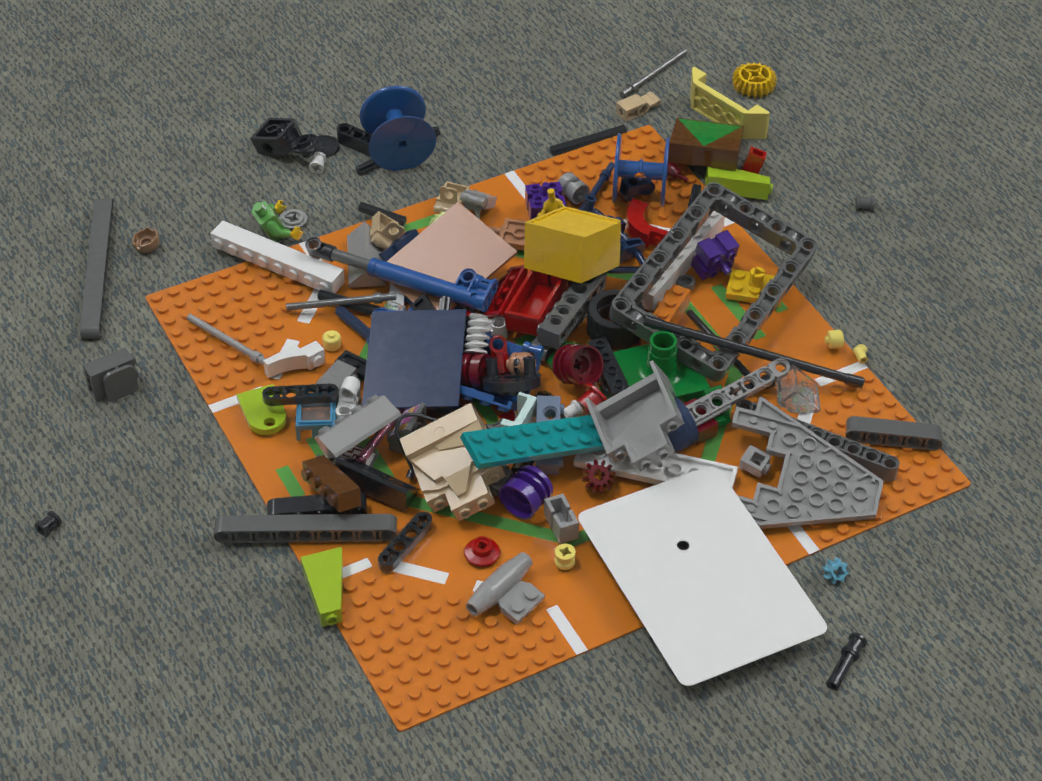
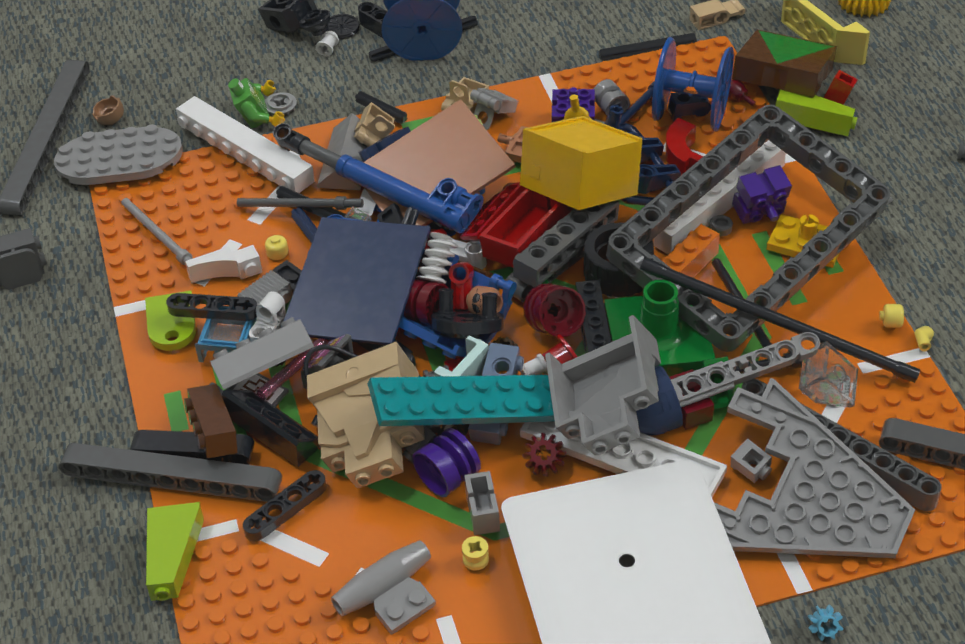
camera: 15 degrees right, 0 degrees up
(168, 278) = (118, 155): none -> light grey plate
(482, 557) = (376, 539): red piece -> none

